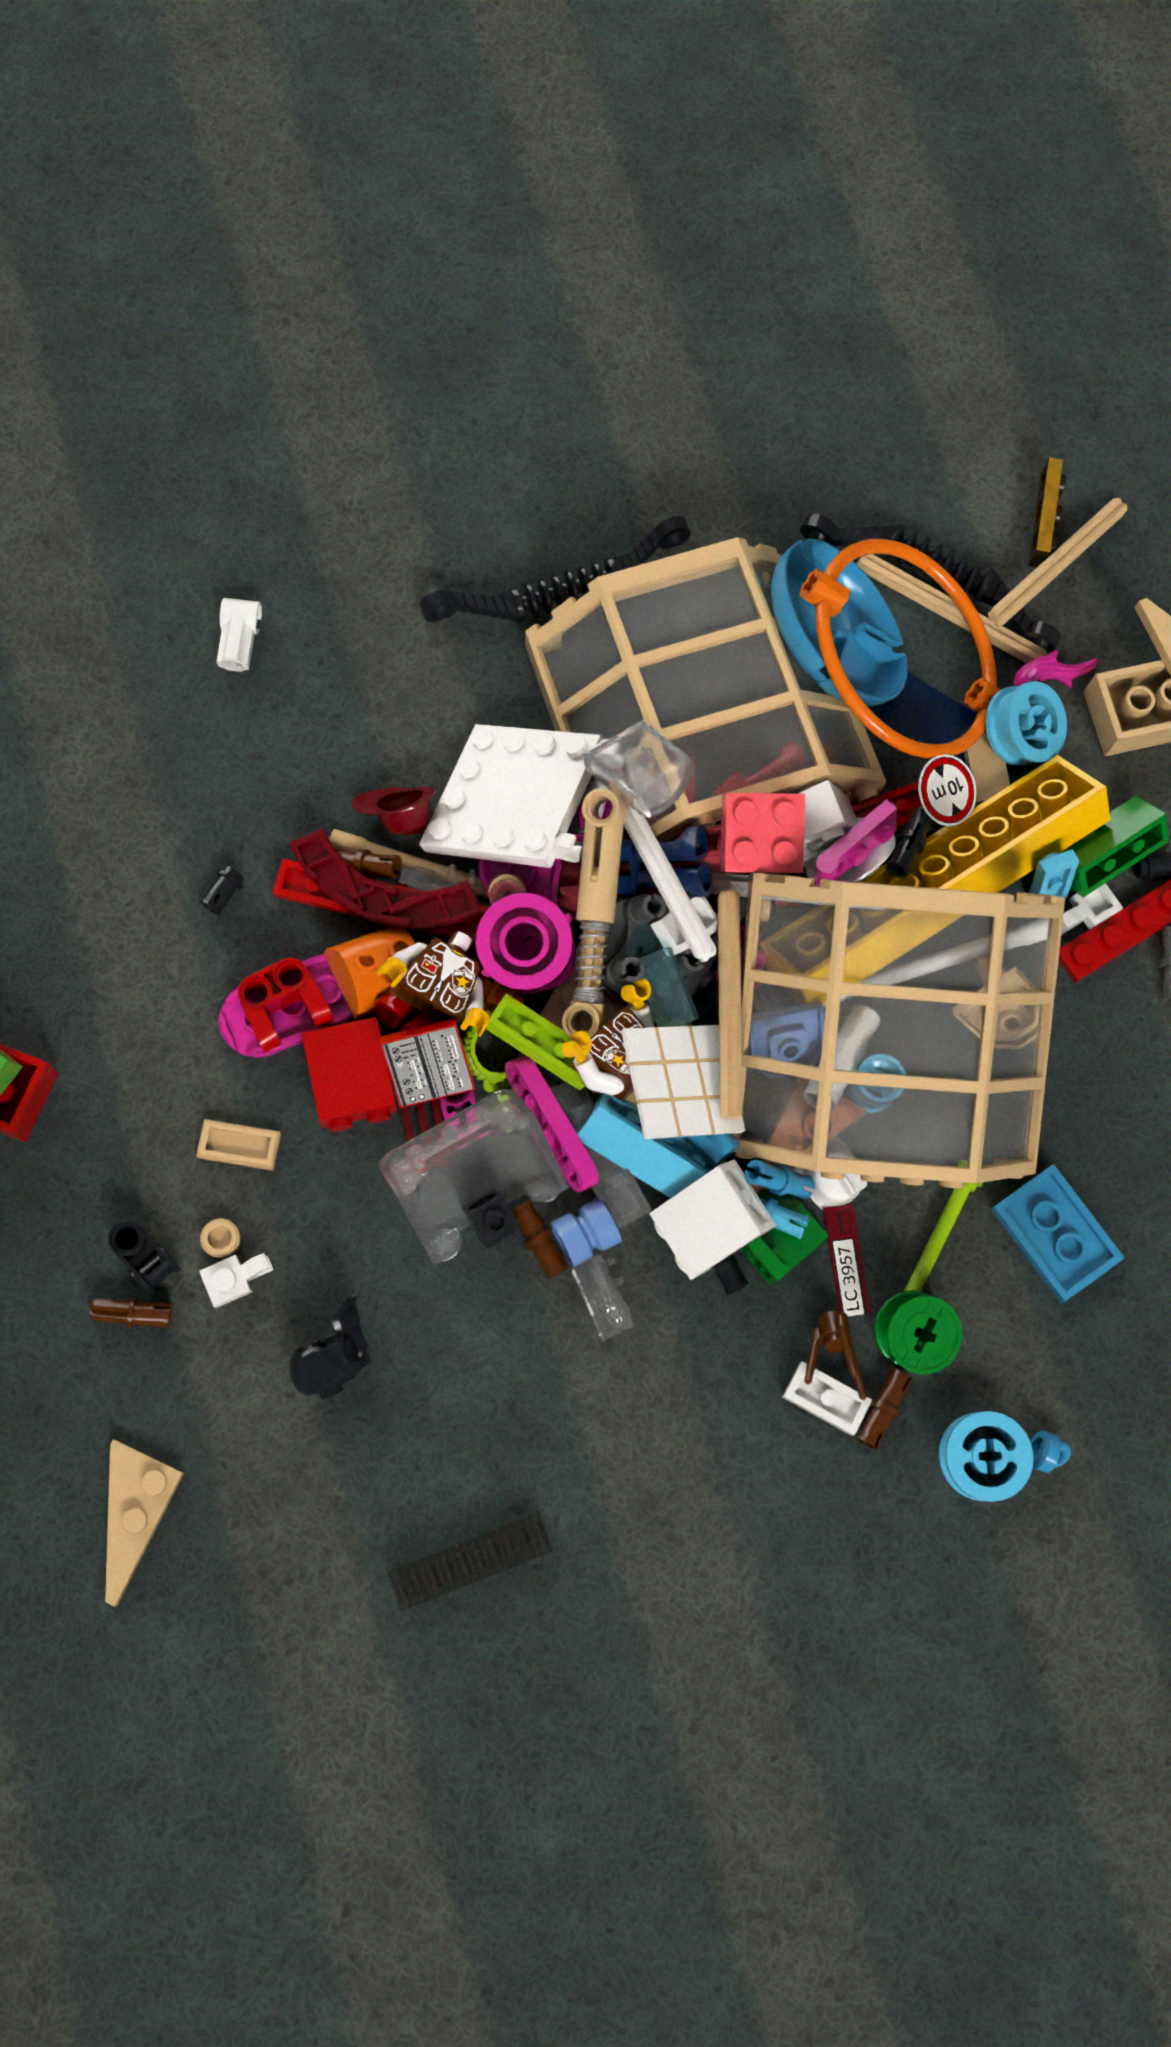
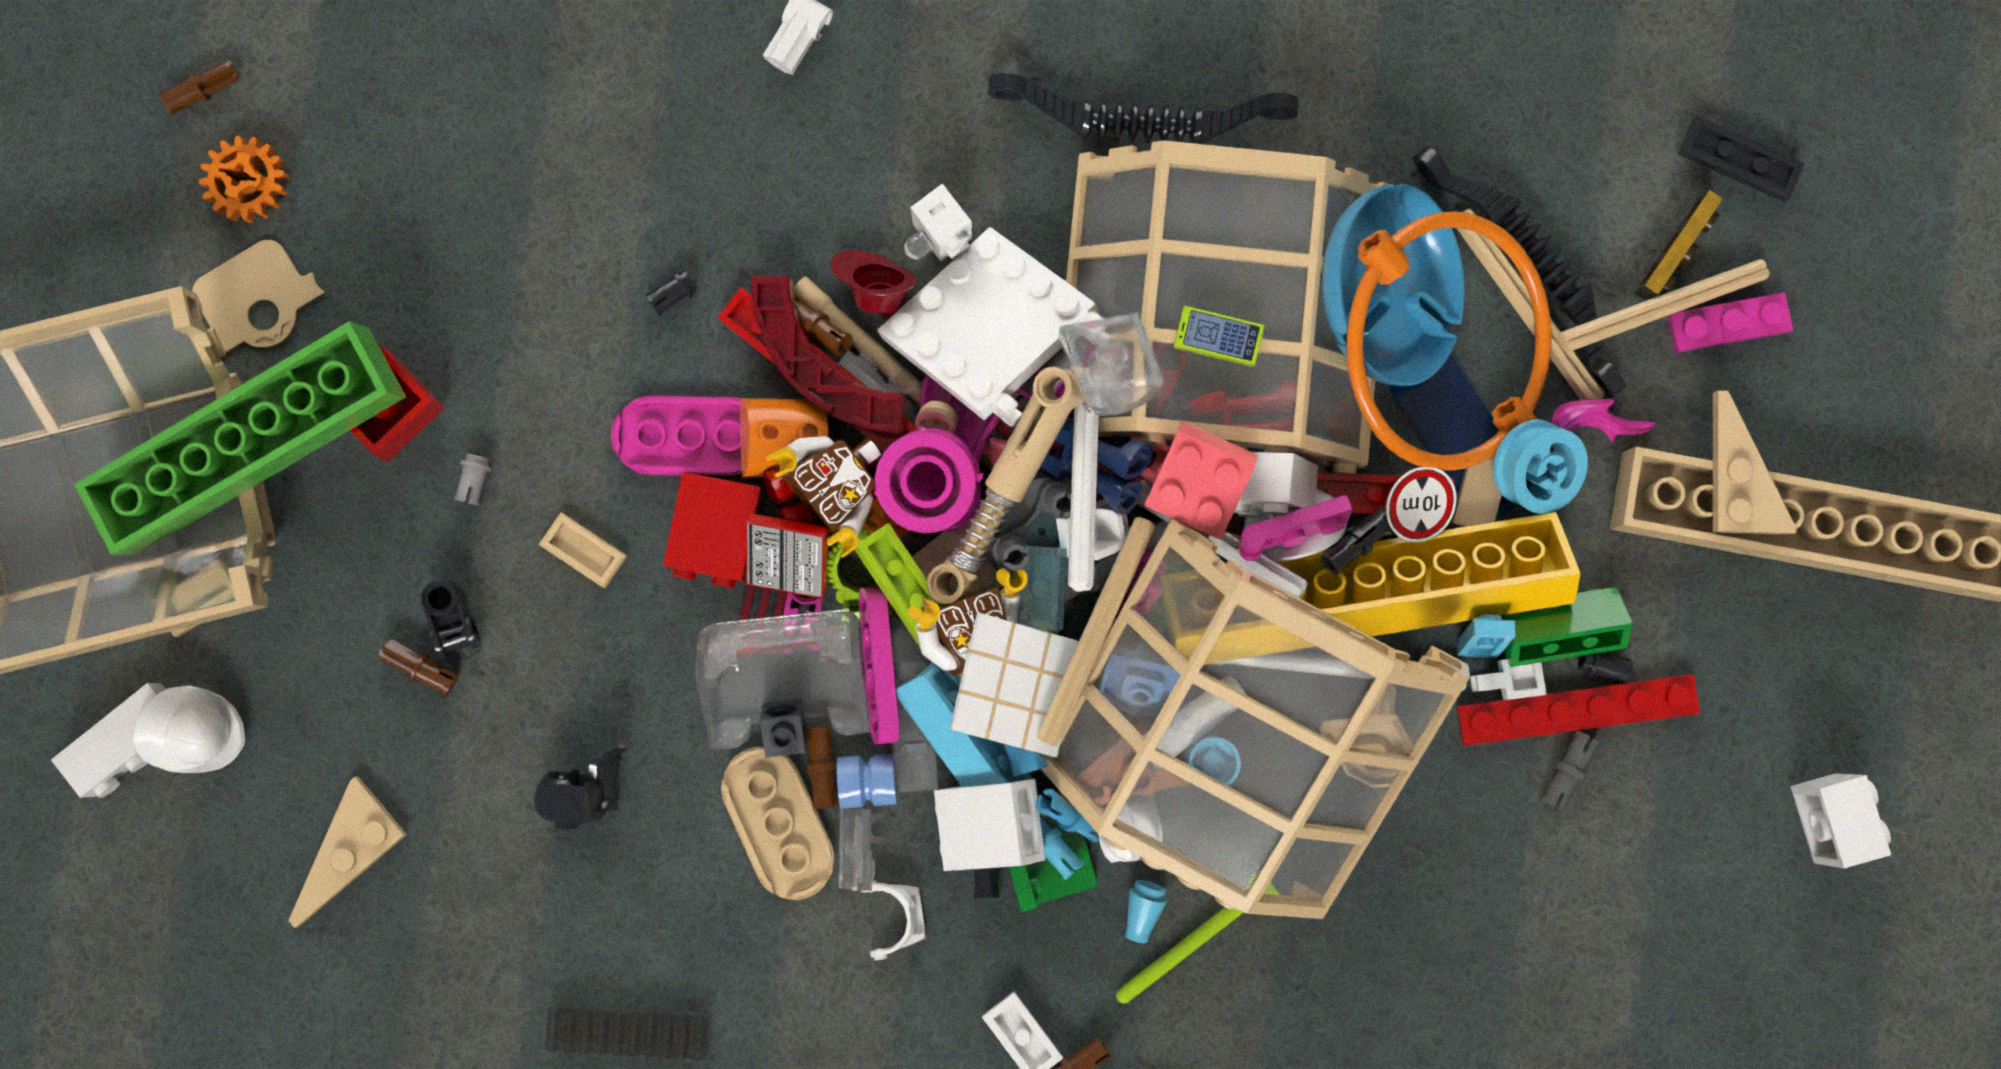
camera: 30 degrees right, 10 degrees up
(110, 1124) = (472, 476): none -> light grey pin
(220, 1238) = (528, 632): tan tile -> none
(230, 1279) = (522, 674): white plate -> none
(280, 996) = (676, 424): red piece -> none
(434, 735) = (940, 227): none -> white piece
(522, 1308) = (778, 824): none -> tan tile
(687, 1346) = (915, 928): none -> white helmet
(719, 711) = (1218, 336): none -> tile
(836, 1336) = (1057, 984): reddish brown plant -> none
(846, 1260) = (1105, 915): sticker -> none
(879, 1239) = (1144, 908): none -> medium azure cone
(939, 1335) = (1136, 1016): green piece -> none
(1057, 1233) = (1319, 982): dark azure plate -> none
(1059, 428) = (1741, 158): none -> black plate
(1115, 557) = (1730, 322): none -> dark pink plate

